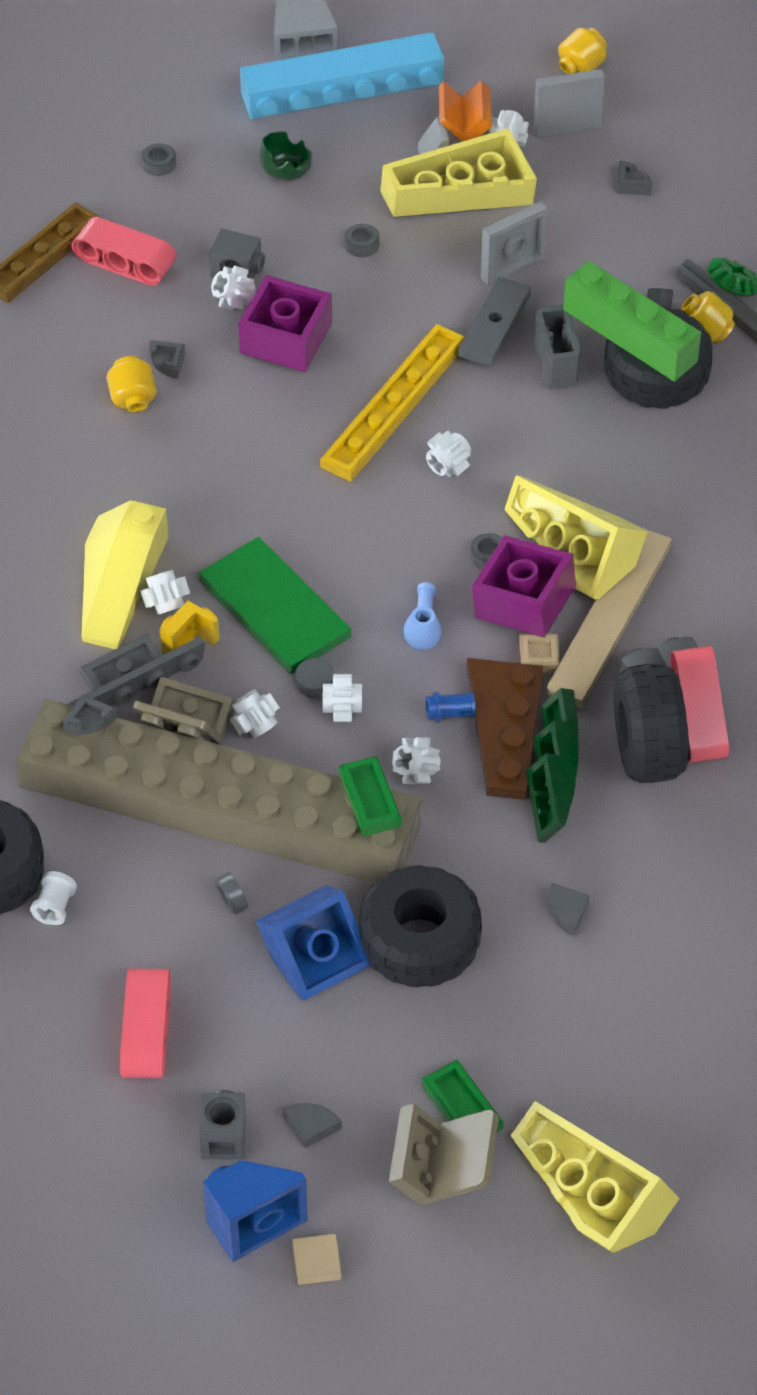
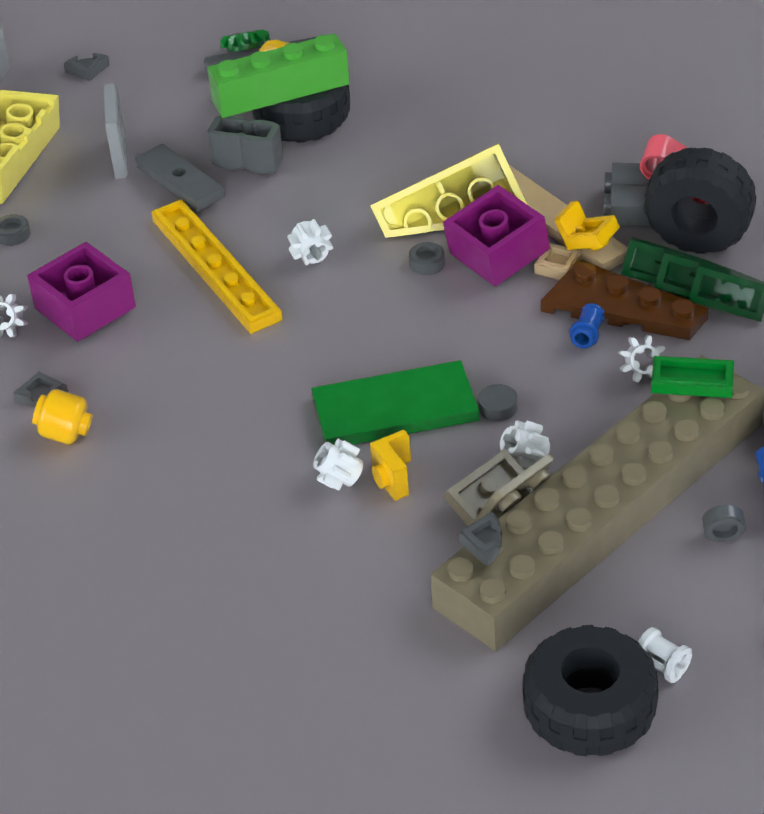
camera: 60 degrees left, 10 degrees down
(117, 561) = (270, 485): light yellow wedge -> none
(135, 667) = (417, 516): dark grey bracket -> none
(342, 698) = (542, 384): white gear -> none
(423, 627) = (484, 319): light blue bar -> none
(571, 648) = (584, 232): none -> yellow bracket

